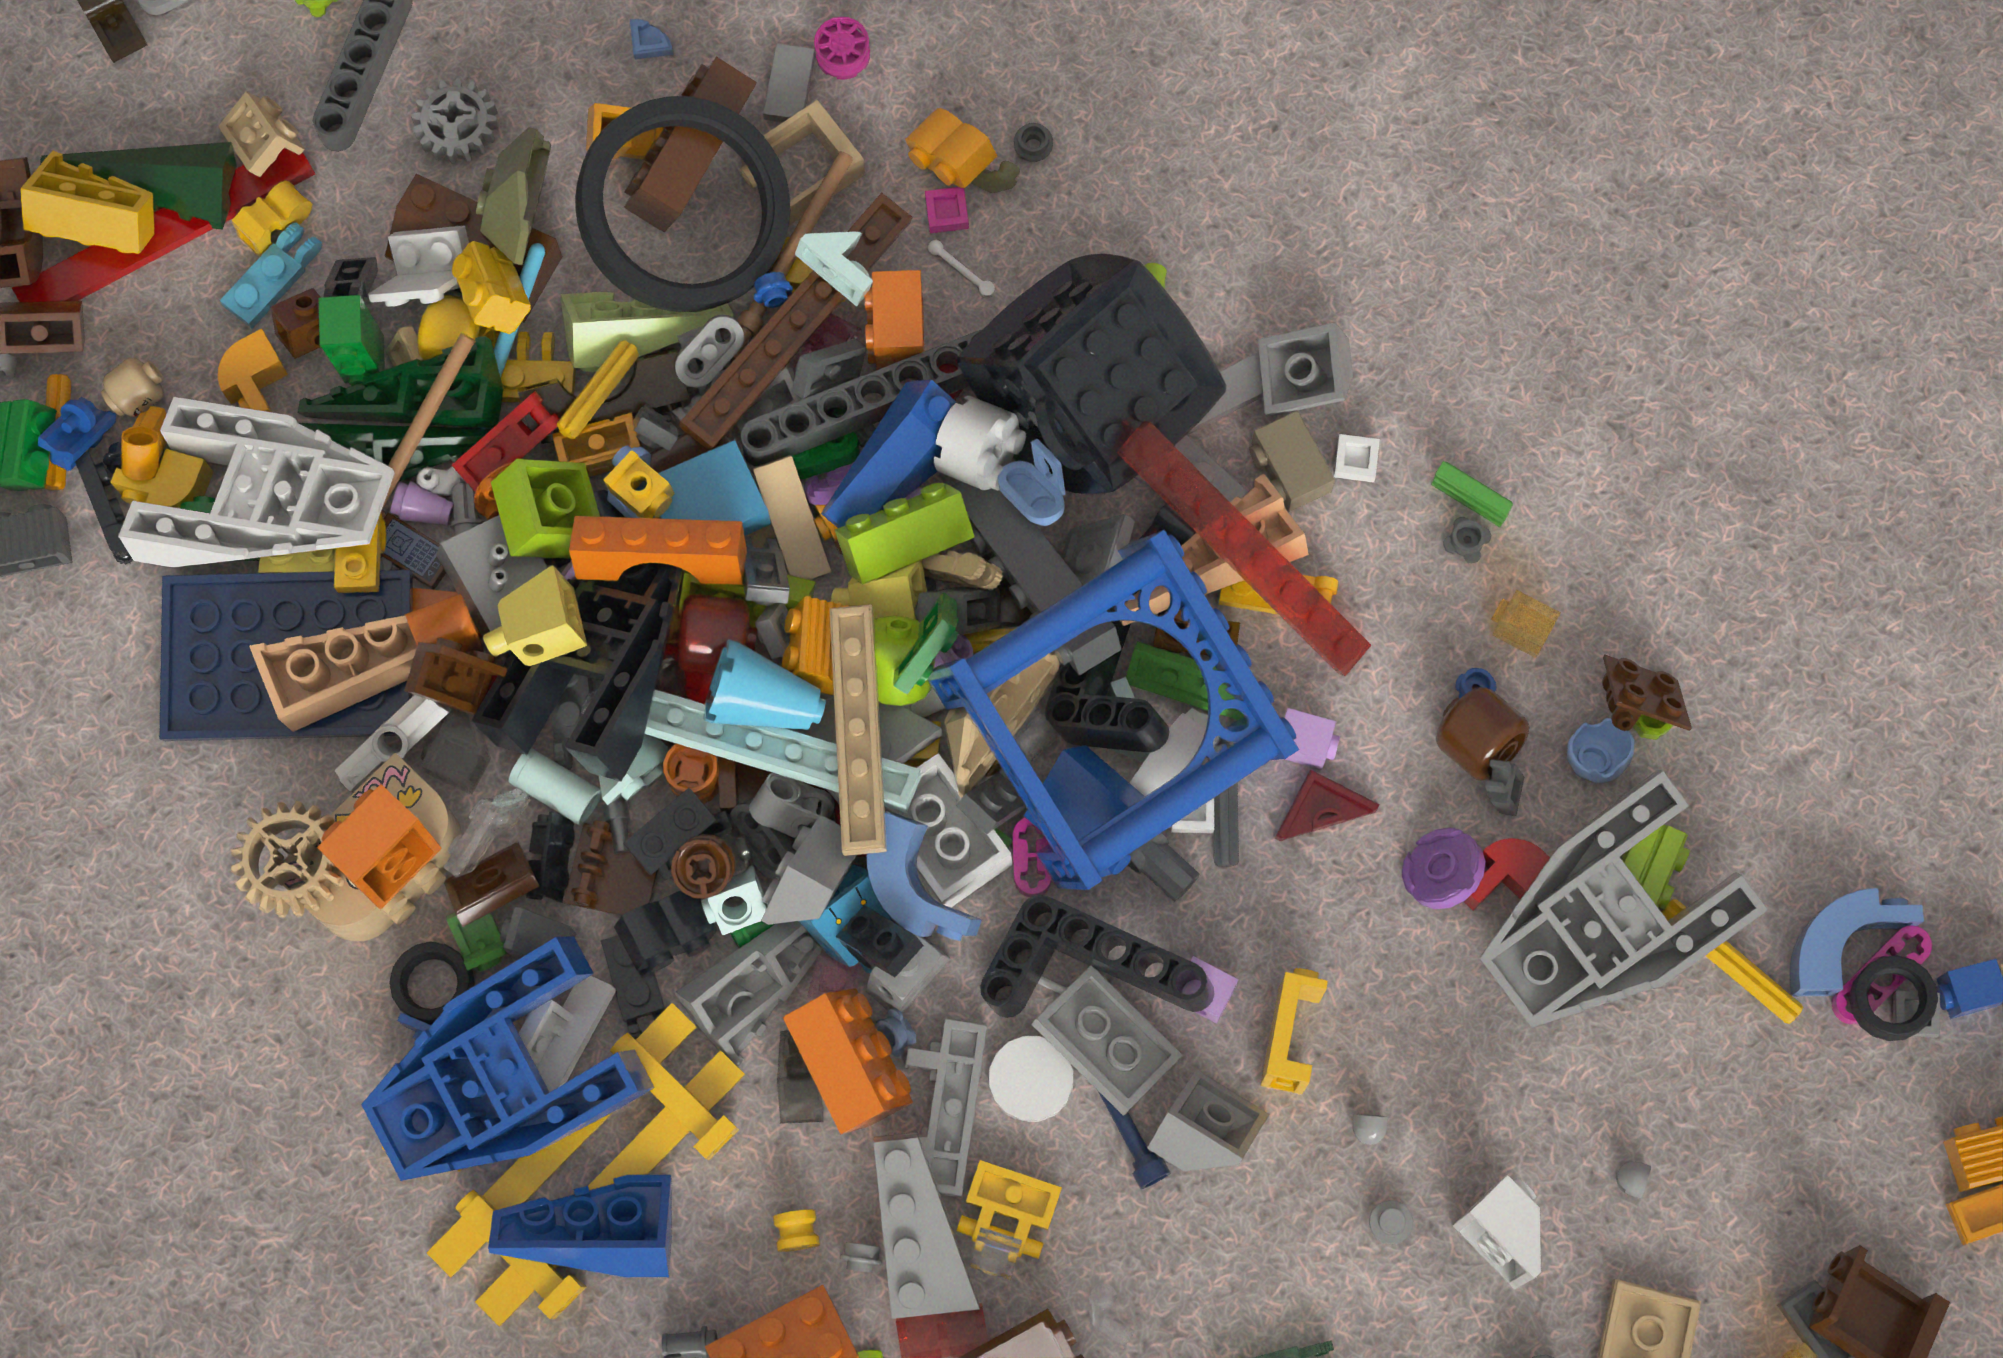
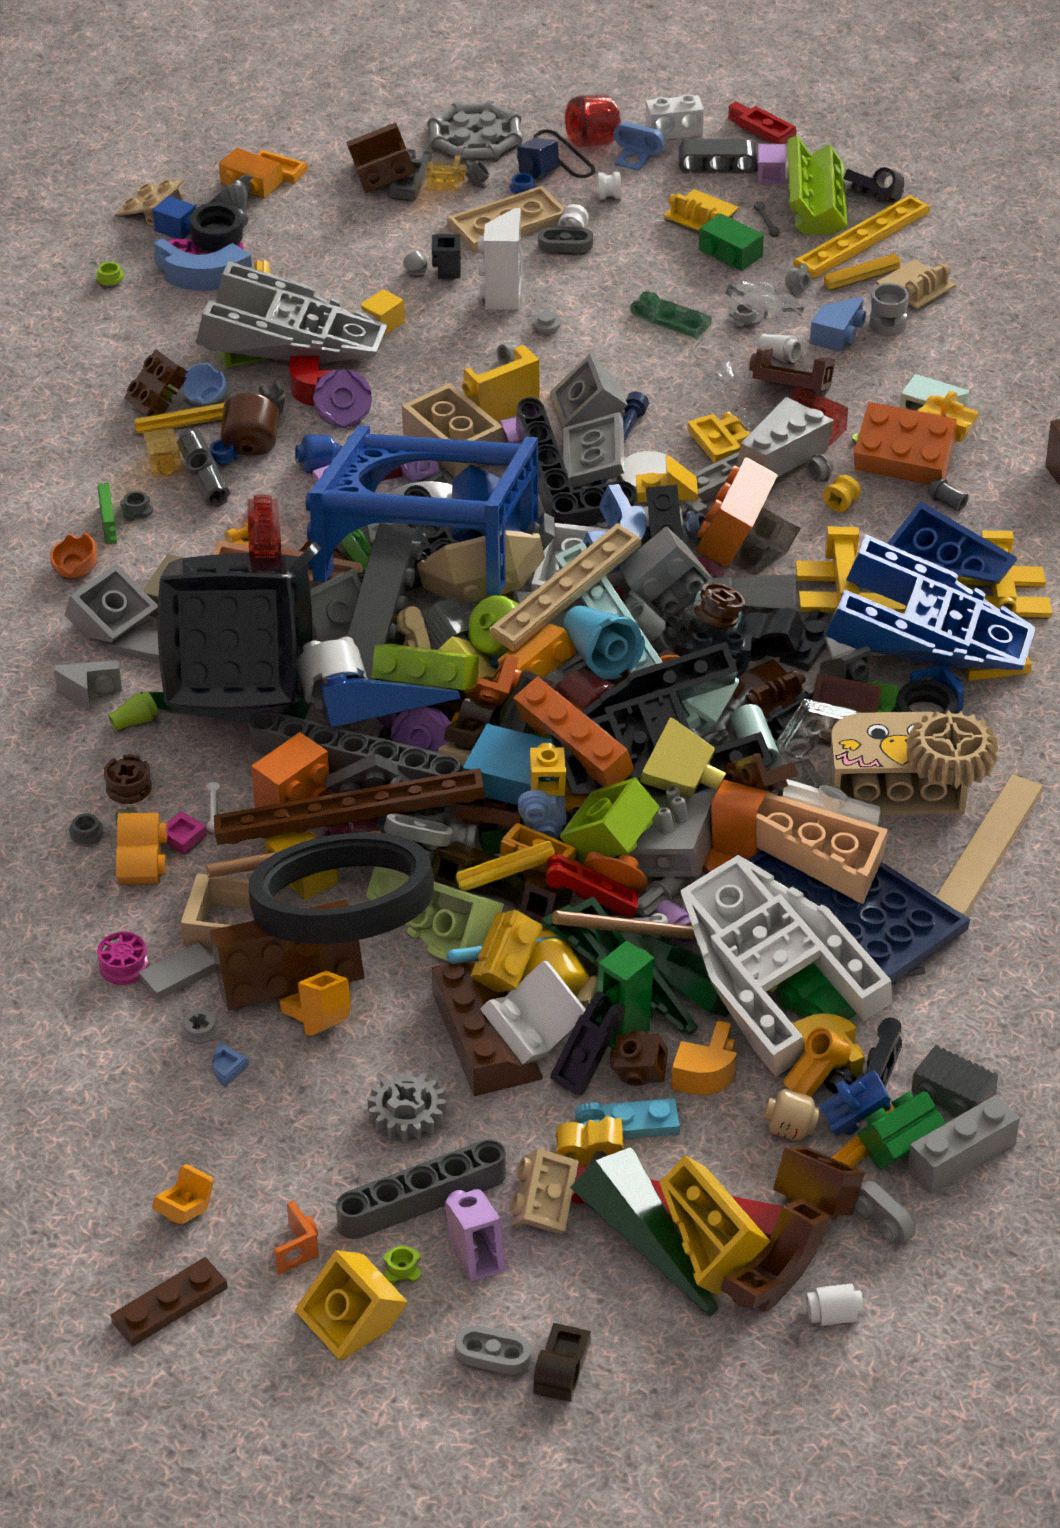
camera: 135 degrees left, 30 degrees down
(217, 827) = (989, 844): none -> tan tile
(277, 50) = (470, 1216): none -> lavender torso
(379, 845) = (894, 684): orange brick -> none
(513, 193) = (426, 988): olive wedge -> none
(654, 428) = (497, 817): dark grey plate -> none
(705, 37) = (204, 1034): none -> light grey bush
(772, 289) = (343, 823): blue plate -> none
(792, 513) = (471, 723): none -> dark brown plate
(813, 565) = (501, 686): none -> orange bracket
(827, 257) = (288, 801): light aqua slope -> none
(935, 634) = (478, 576): green plate -> none
(971, 1050) = (674, 475): none -> yellow slope
(1033, 487) = (333, 624): light blue bracket -> none
(1062, 218) = (127, 779): none -> reddish brown wheel
(1233, 276) = (82, 679): none -> light grey slope
(1259, 850) = (420, 469): none -> lavender bracket
(1276, 924) = (449, 415): none -> tan brick
(1356, 458) = (139, 568): white plate -> none
(1376, 769) = (316, 452): none -> blue head
(1439, 405) = (74, 556): none -> orange hair
(1457, 637) = (203, 468): none -> dark grey piece
(1568, 1052) = (386, 308): none -> yellow panel
(1569, 712) = (179, 418): none -> yellow axle
(1604, 1208) = (447, 255): none -> black brick
(1924, 837) = (109, 274): none -> lime plate
(1944, 1073) = (236, 195): none -> dark grey hair

